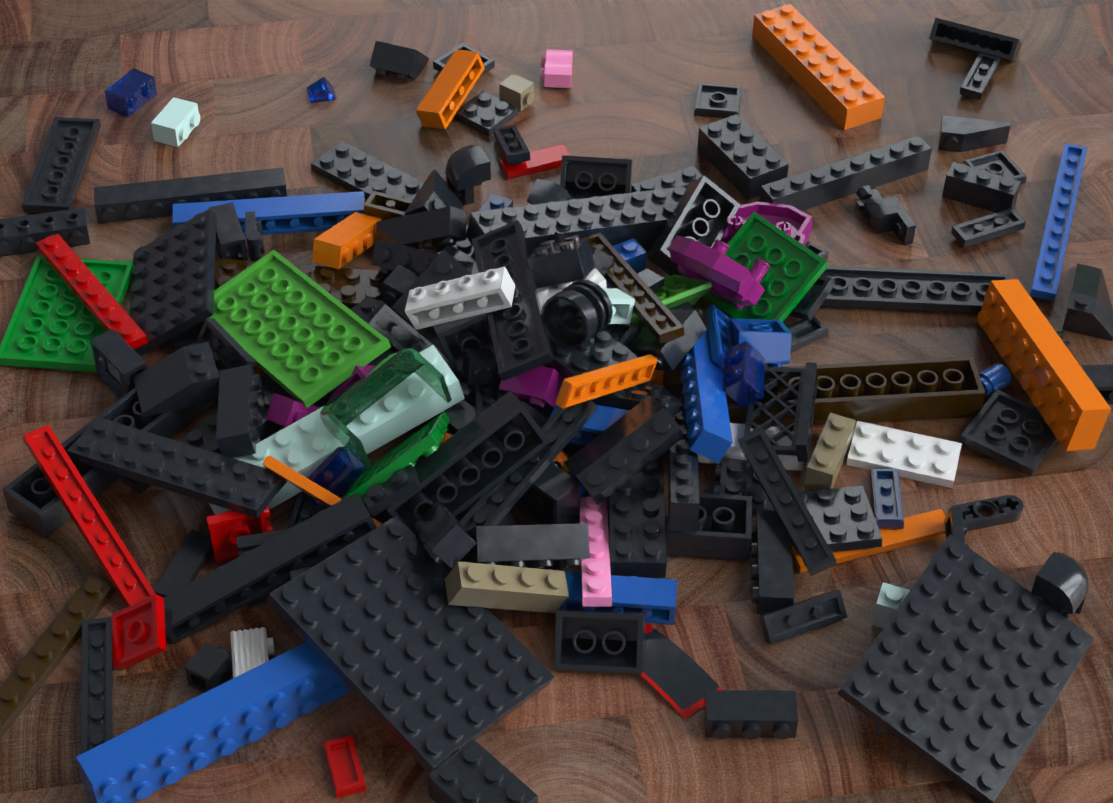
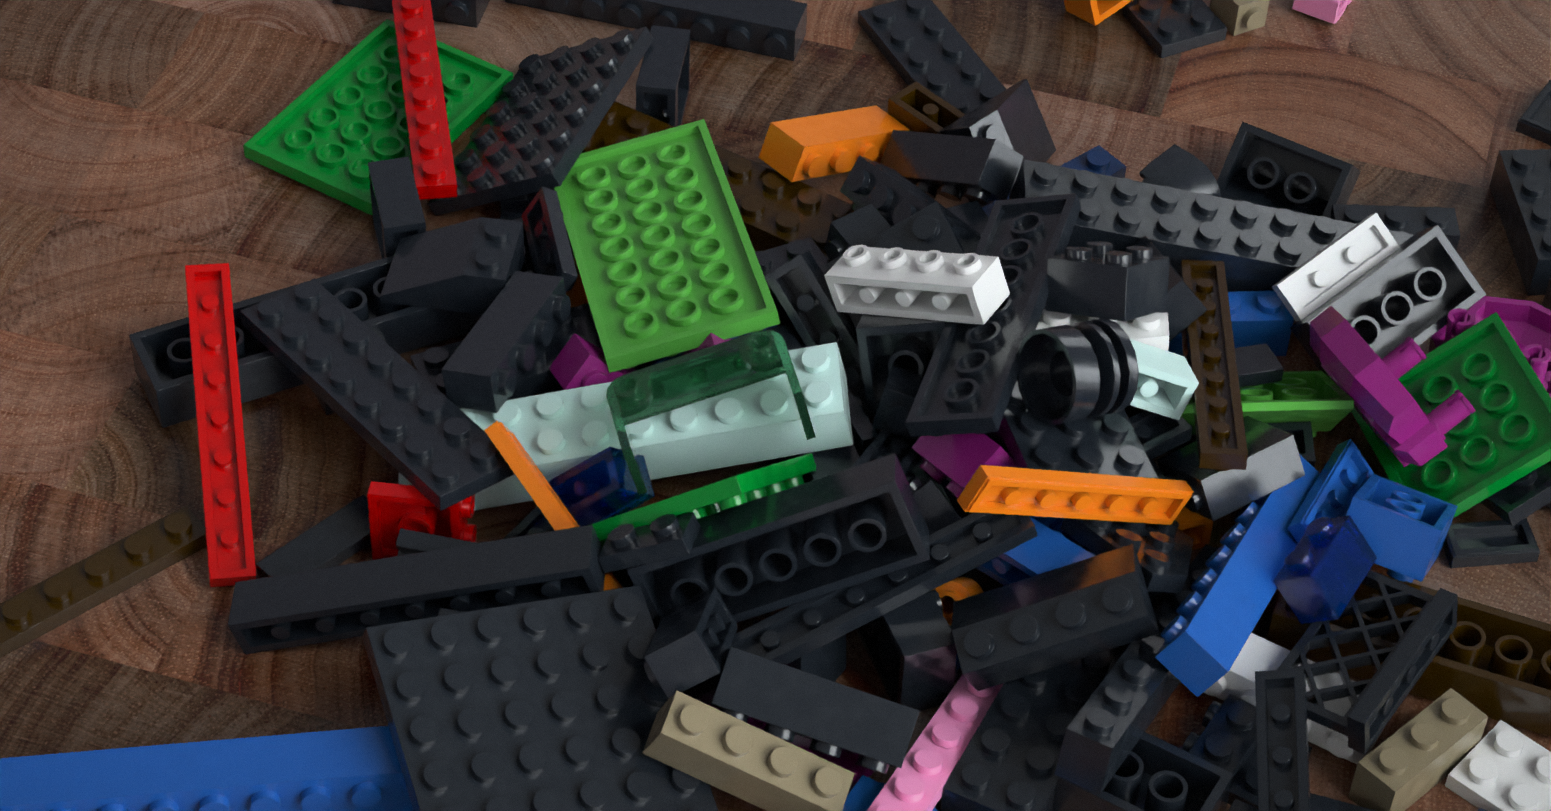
camera: 25 degrees right, 0 degrees up
(97, 683) = (102, 664): black plate -> none
(138, 632) = (193, 615): red plate -> none
(209, 668) = (264, 706): black brick -> none
(250, 649) = (335, 703): white brick -> none
(253, 236) = (698, 90): black plate -> none
(286, 213) = (768, 72): blue brick -> none
(467, 169) = (1081, 98): black brick -> none
(511, 144) = (1181, 81): black plate -> none
(540, 161) = (1204, 119): red tile -> none
(657, 216) = (1336, 267): none -> white plate

